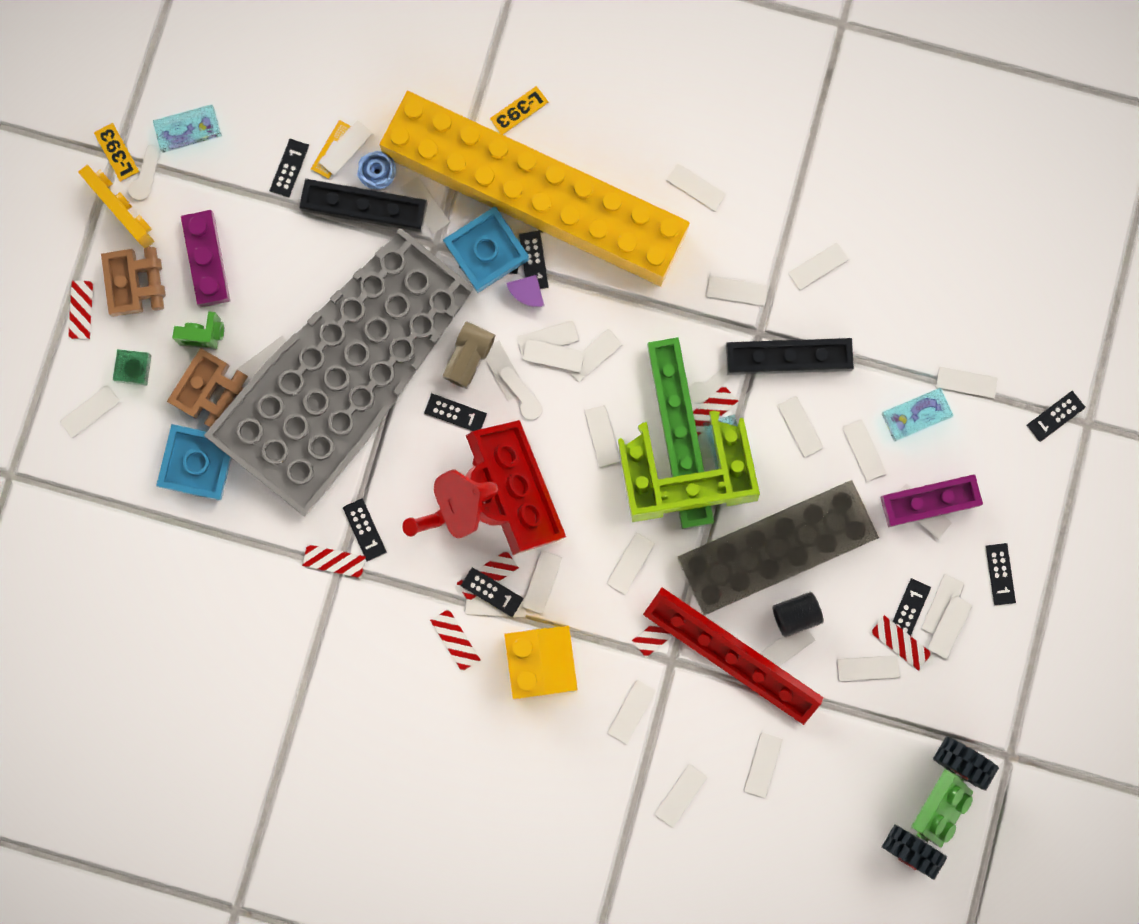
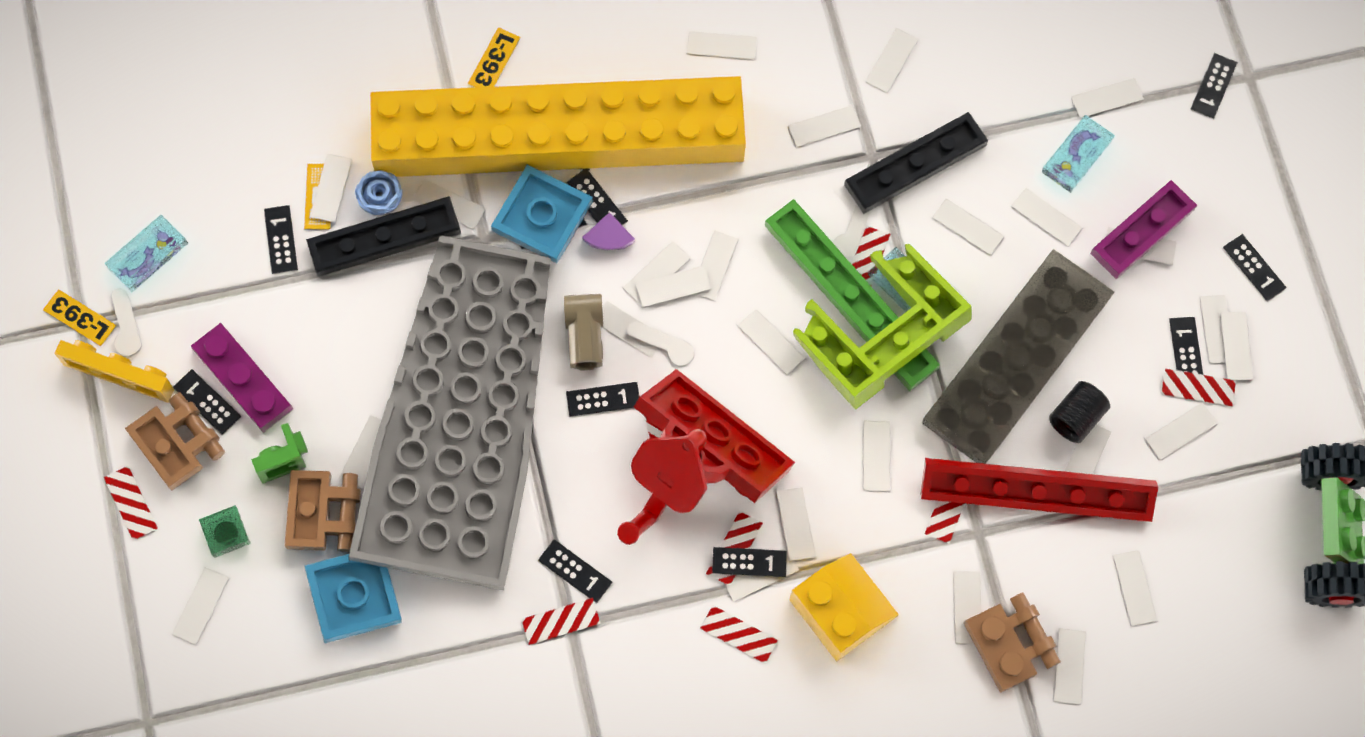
camera: 30 degrees left, 10 degrees down
(172, 263) = (208, 401): none -> black sticker
(638, 754) = (1002, 649): none -> medium nougat plate

